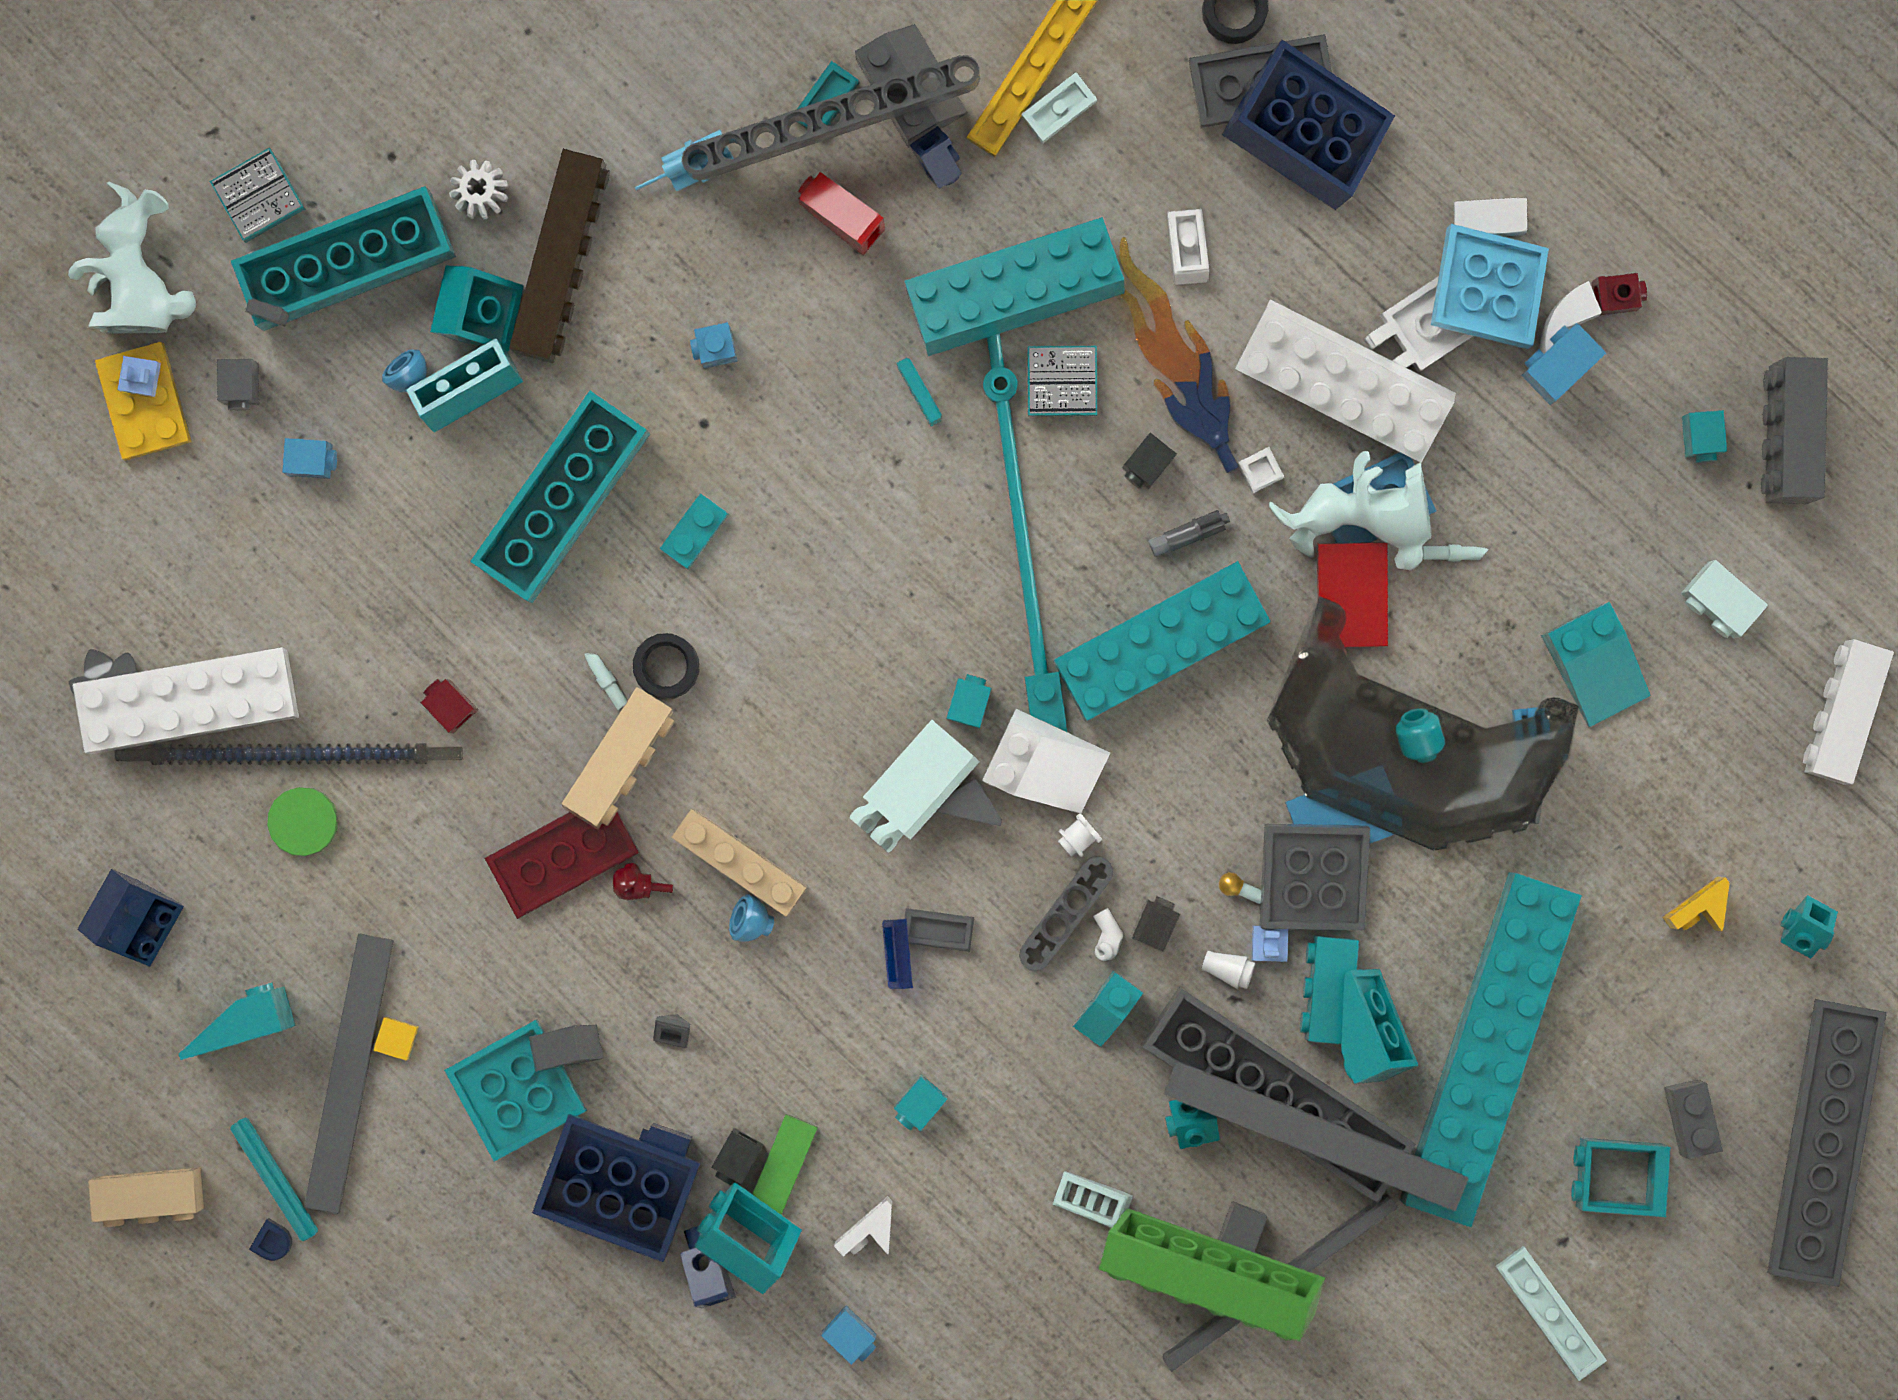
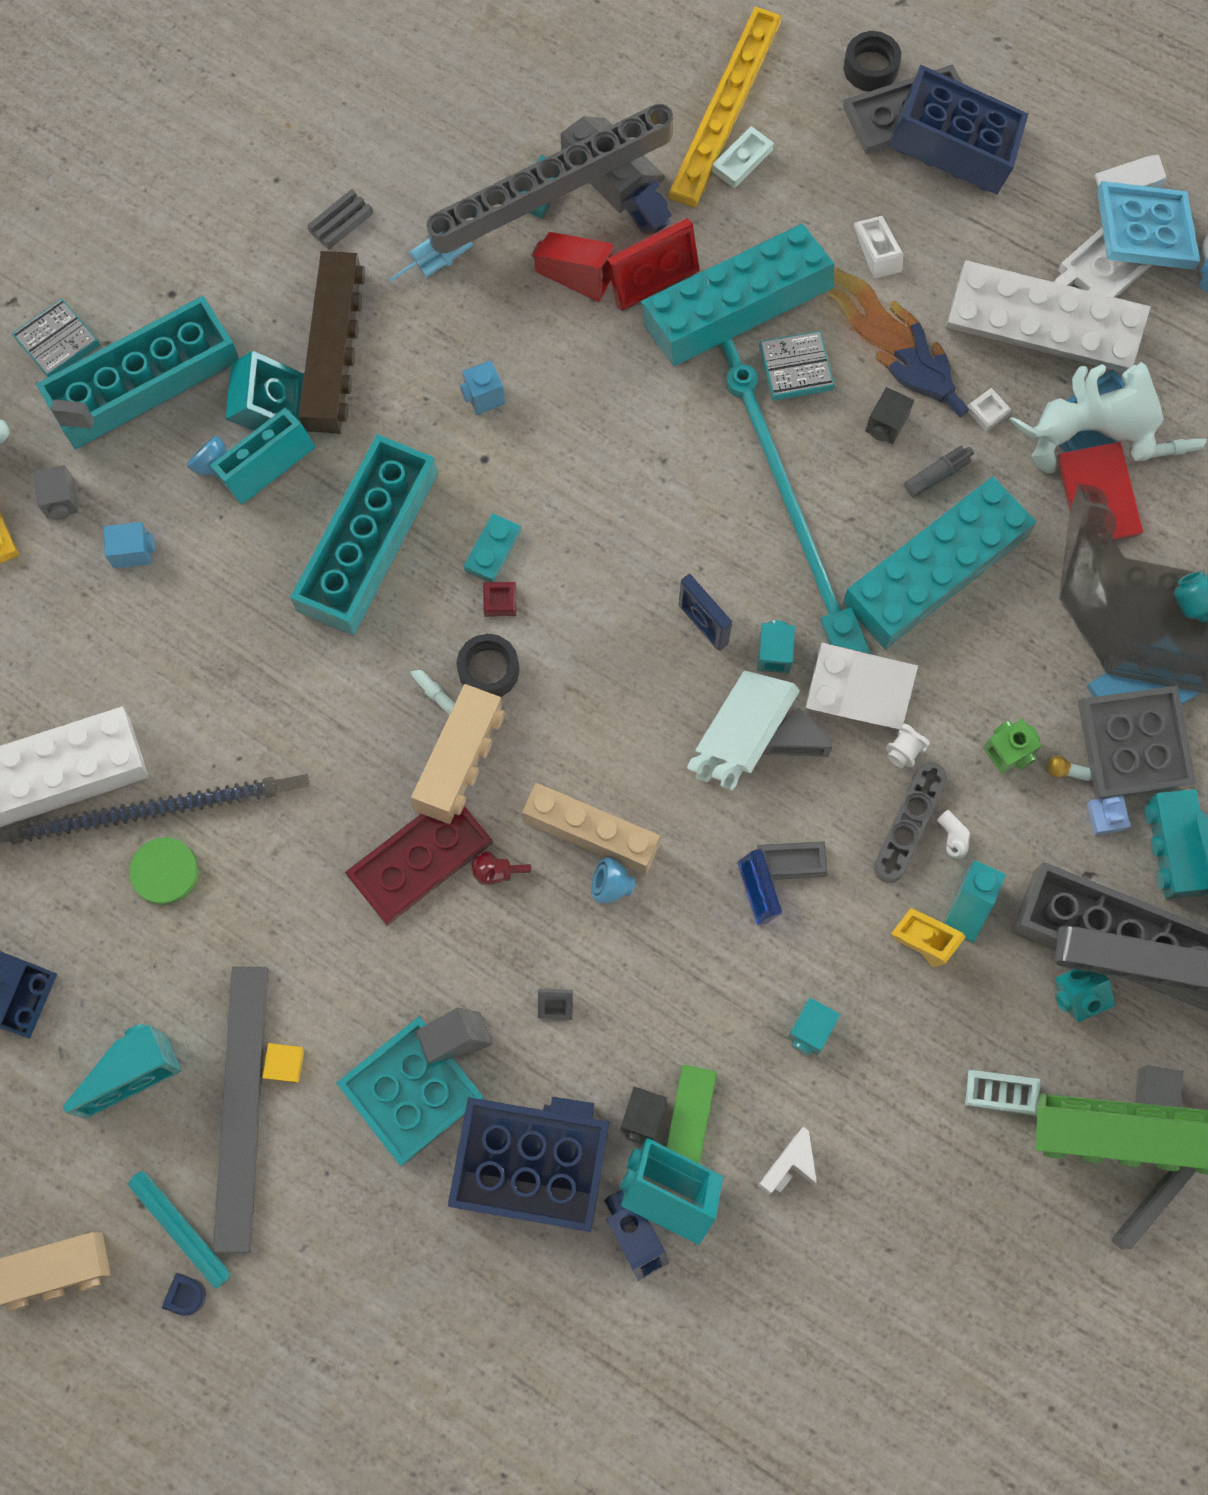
camera: 10 degrees left, 15 degrees down
(448, 704) = (289, 736): dark red brick -> none
(482, 177) = (252, 301): white gear -> none
(585, 88) = (336, 216): none -> dark grey tile
(691, 590) = (499, 599): none -> dark red tile
(850, 1336) = (794, 1278): dark azure brick -> none
(899, 655) = (704, 612): none -> dark blue tile
(919, 391) = (672, 394): teal tile -> none
(928, 235) = (653, 264): none -> red tile
(1052, 1036) = (928, 936): none -> yellow slope
(1155, 923) = (998, 814): clear smoke brick -> none
(1174, 857) = (1013, 746): none -> bright green brick
(1229, 968) = (1078, 843): white cone -> none

